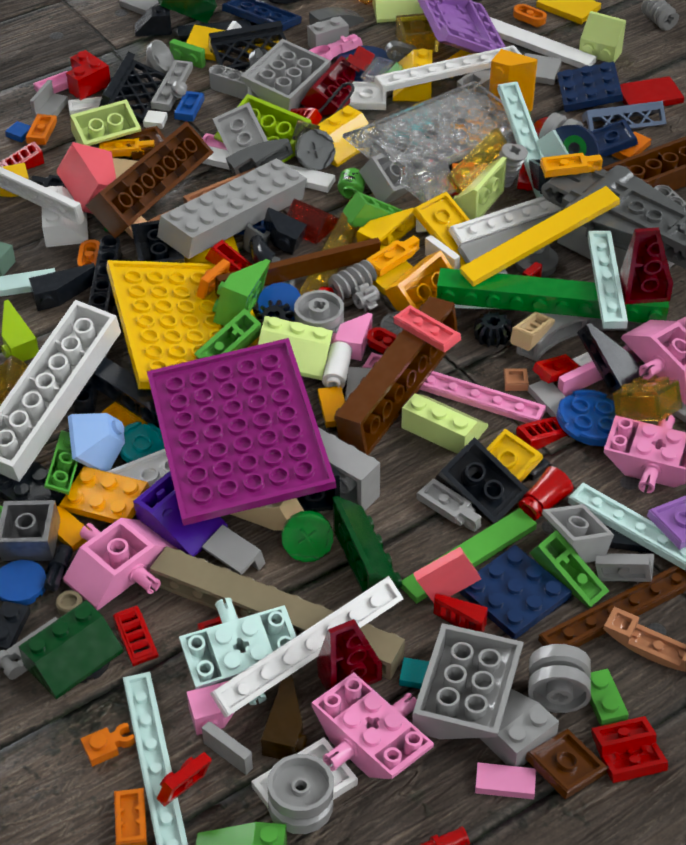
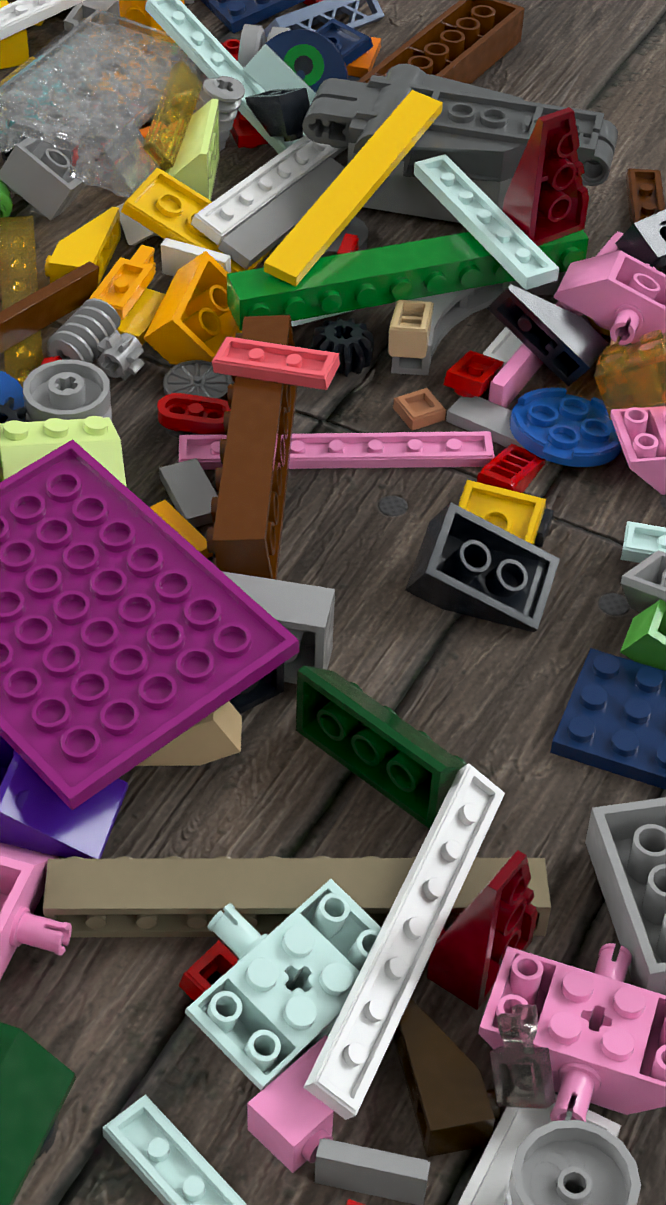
camera: 30 degrees left, 0 degrees up
(129, 620) = (55, 1017): red slope -> none
(234, 550) = (165, 822): light grey panel -> none
(307, 536) = (277, 751): green tile -> none
(317, 727) = (519, 1069): none -> clear smoke plate
(337, 365) = (143, 469): white brick -> none
(355, 334) = (140, 421): bright pink slope -> none
(366, 208) = (40, 229): bright green slope -> none
(413, 672) = (580, 908): teal tile -> none
(440, 423) = (359, 508): yellowish green slope -> none
(447, 574) = (545, 729): coral tile -> none
(449, 505) = (454, 623): light grey hinge -> none
(461, 612) = (589, 783): red slope -> none
(482, 546) = (532, 689): bright green tile -> none
(546, 492) = (585, 553): red plant -> none
(570, 164) = (333, 78): light orange hinge -> none

